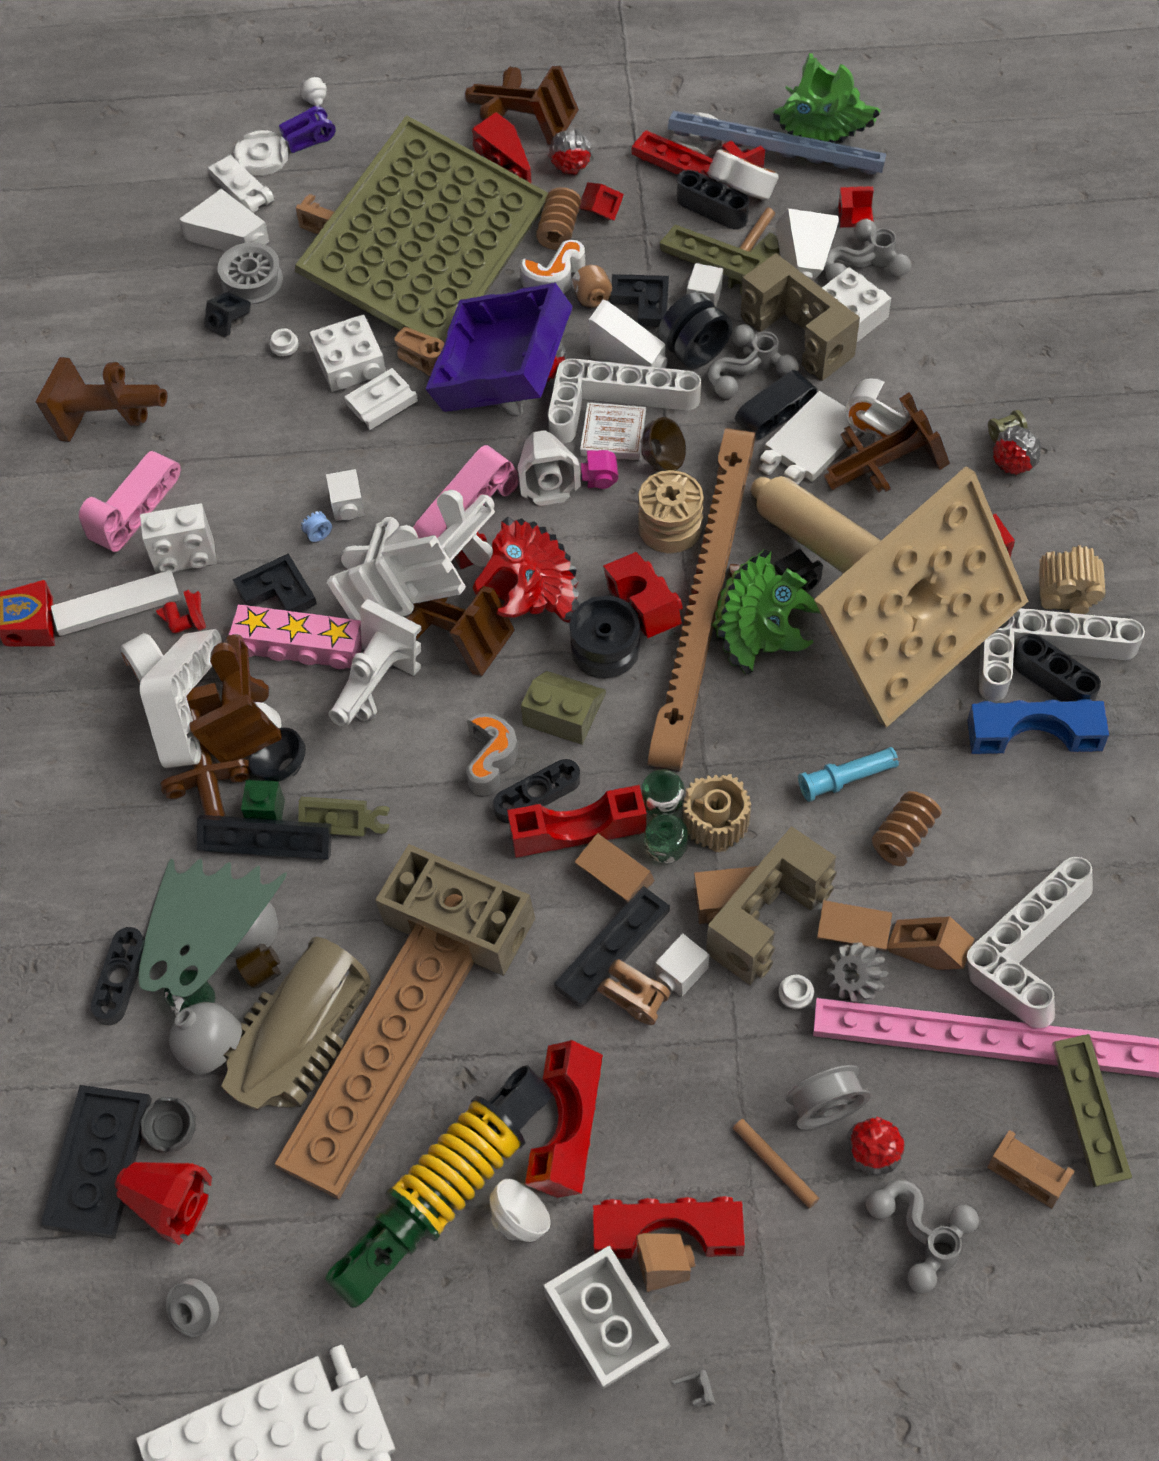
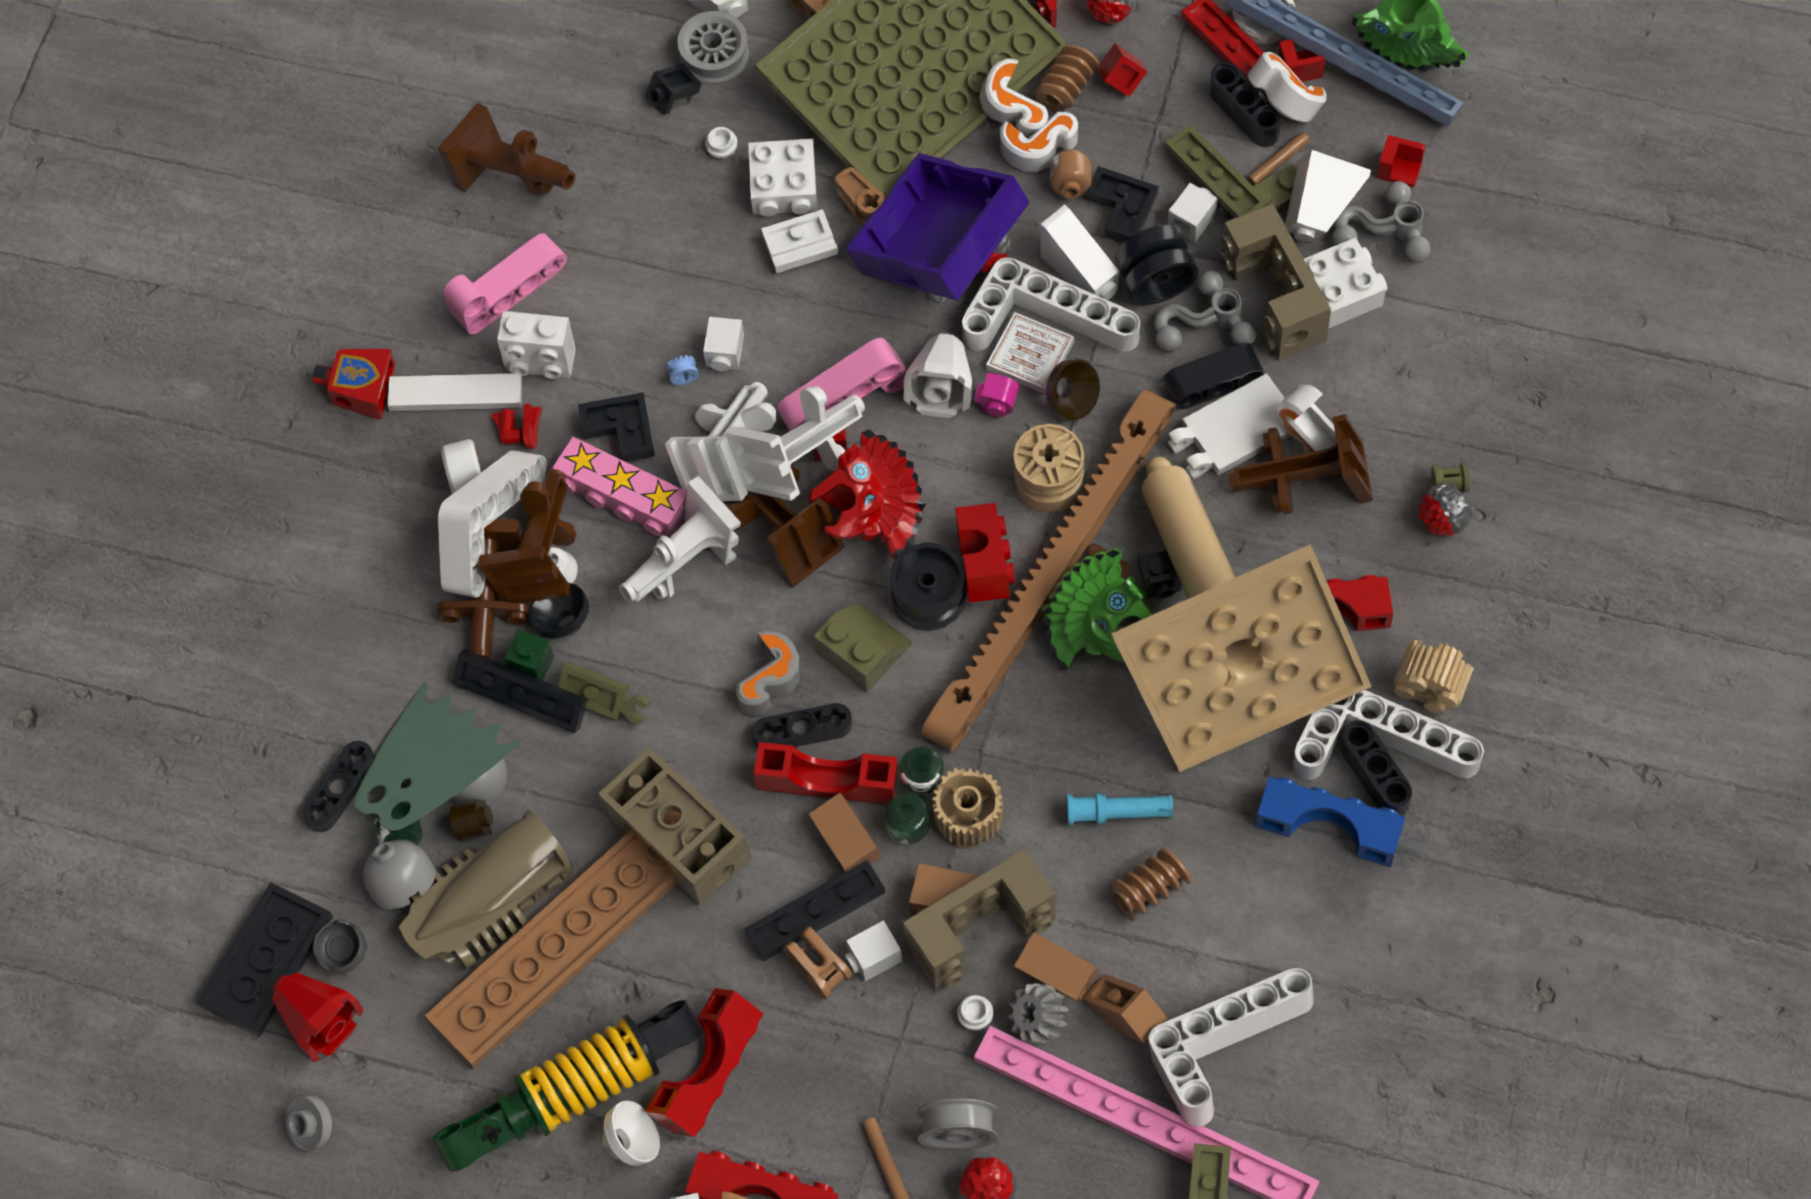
camera: 20 degrees right, 5 degrees up
(515, 245) = (1007, 105): none -> white animal

